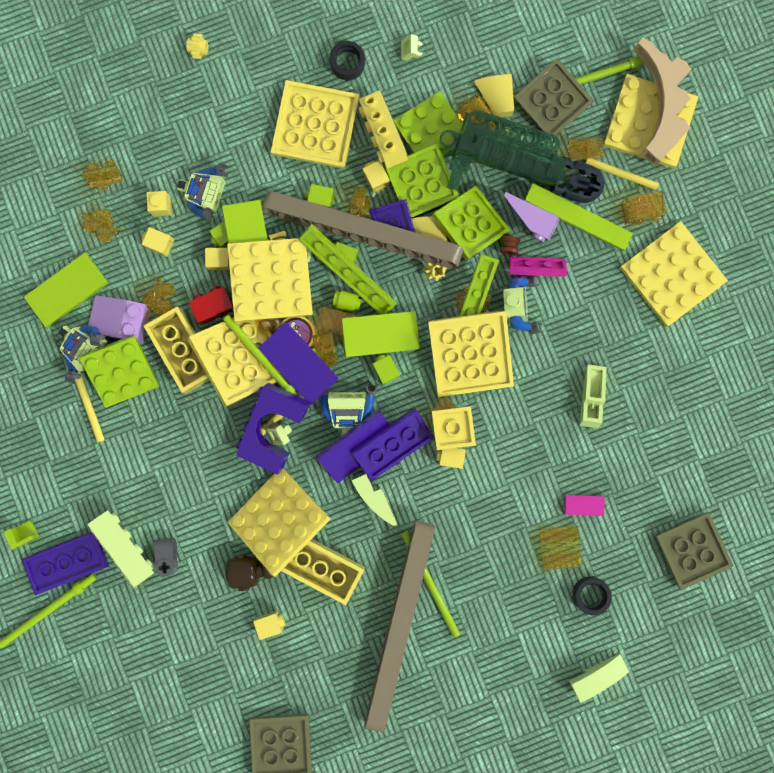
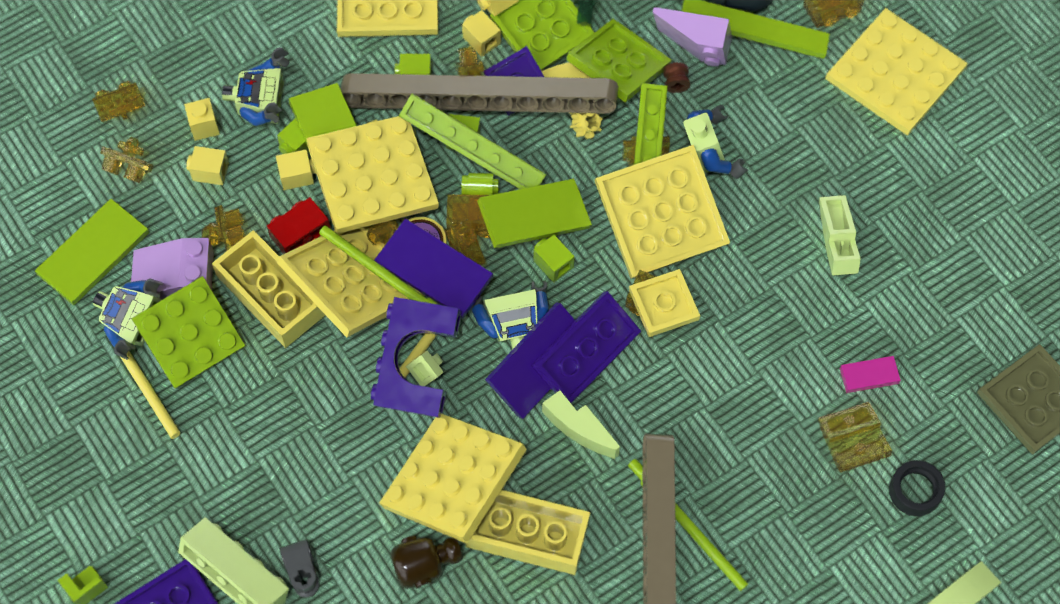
camera: 15 degrees left, 20 degrees down
(451, 457) = (671, 348): light yellow brick -> none
(537, 266) = (719, 95): dark pink tile -> none

